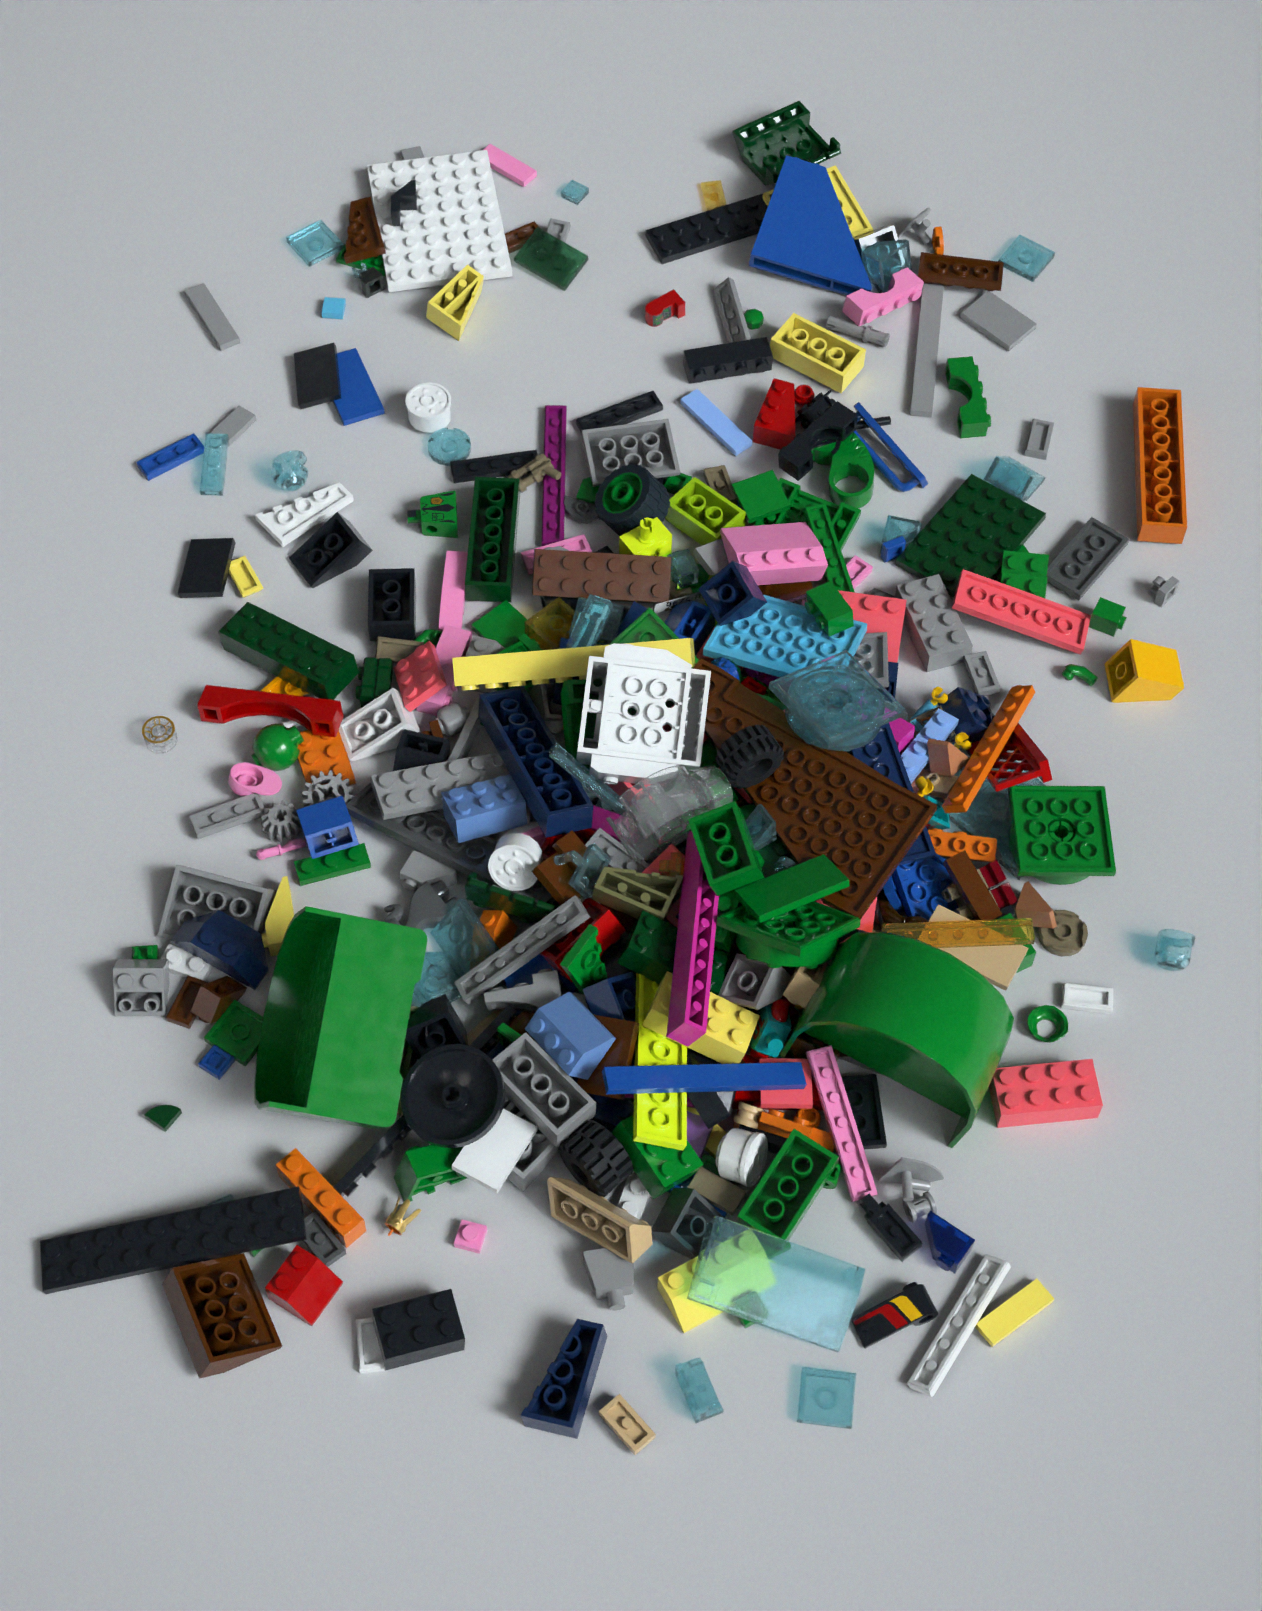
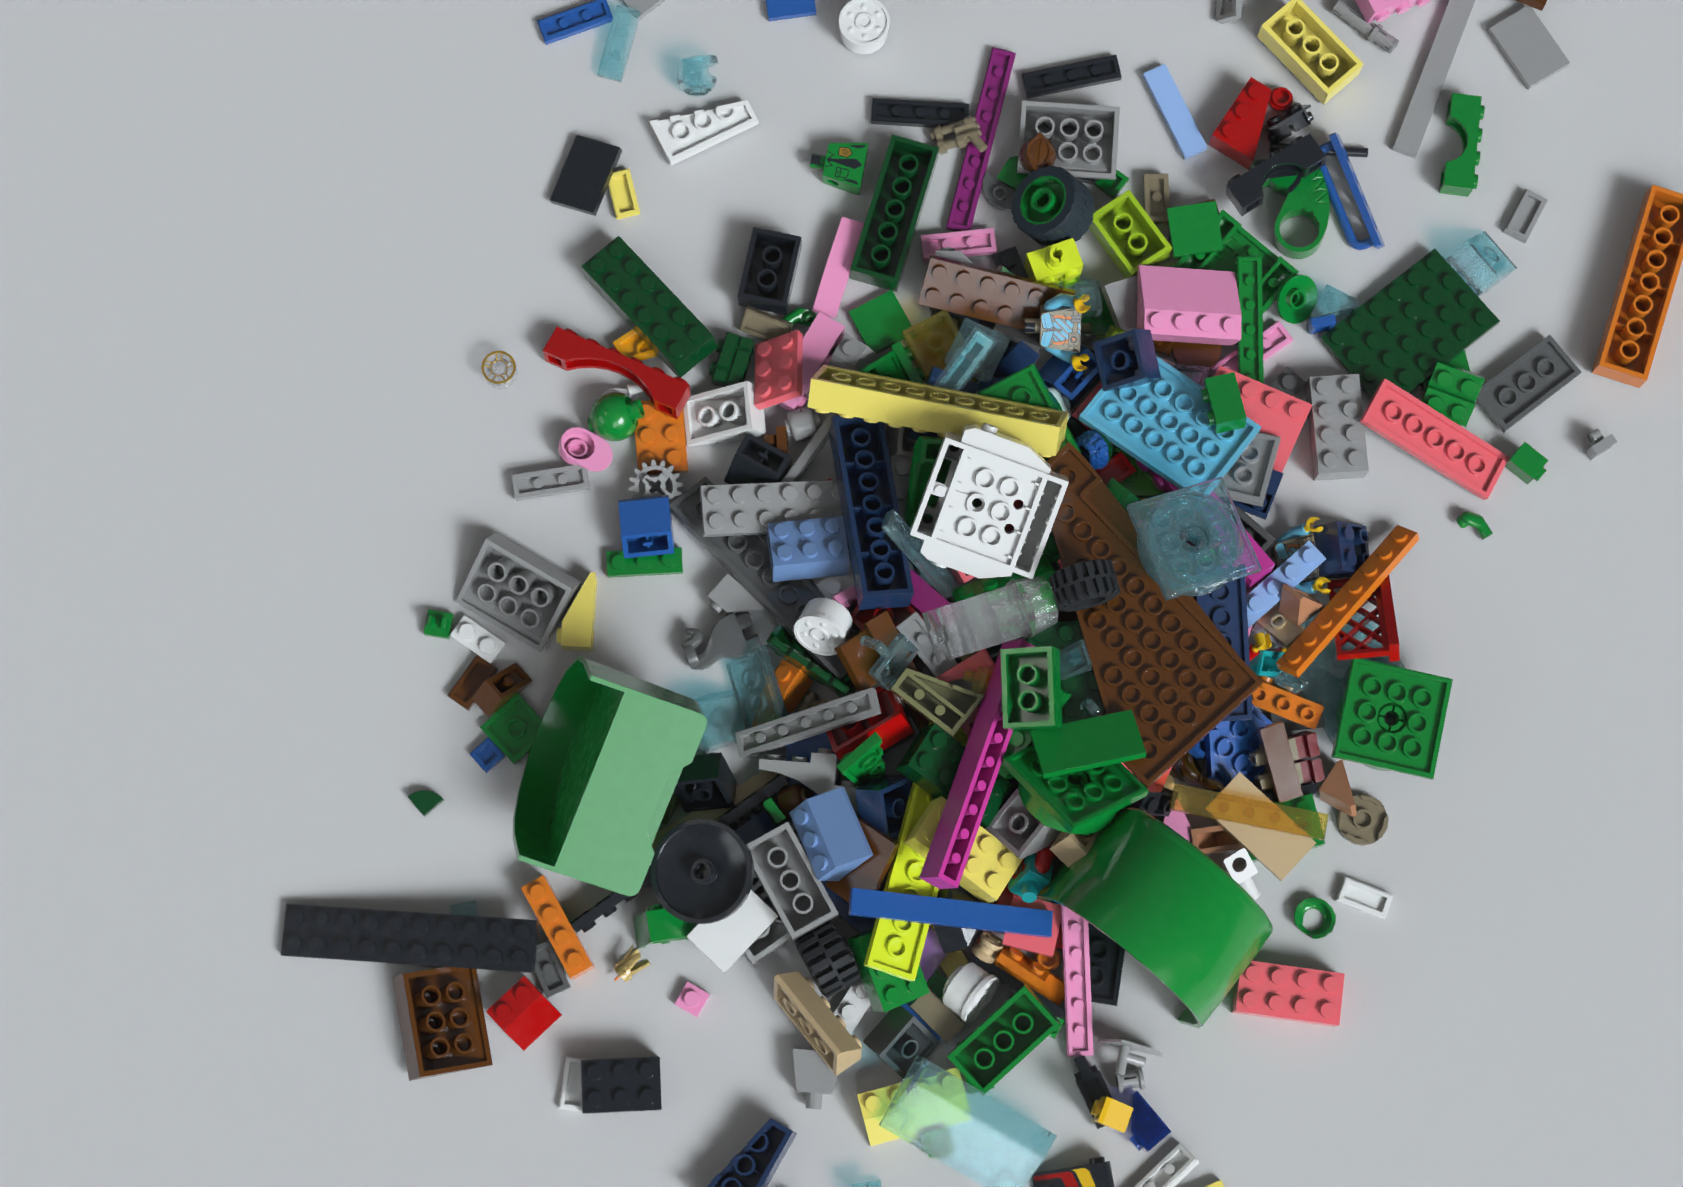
camera: 15 degrees right, 20 degrees up
(141, 987) = (428, 657): light grey slope -> none
(226, 946) = (519, 633): dark blue wedge -> none
(279, 850) = (607, 531): bright pink piece -> none
(280, 821) = (593, 502): light grey gear -> none
(330, 551) = (719, 186): black slope -> none
(449, 446) = (876, 76): clear light blue tile -> none
(605, 463) = (1037, 153): none -> reddish brown hat
(666, 584) = (1061, 327): none -> torso
(727, 360) = (1208, 34): black brick -> none
(865, 533) = (1296, 299): none -> green dish
(912, 1233) = (1111, 1113): none -> yellow slope
(962, 826) = (1291, 682): none -> clear light blue tile
(981, 673) = (1370, 500): light grey plate -> none
(1143, 673) = (1542, 543): yellow slope -> none
(1173, 949) = (1467, 871): clear light blue helmet -> none

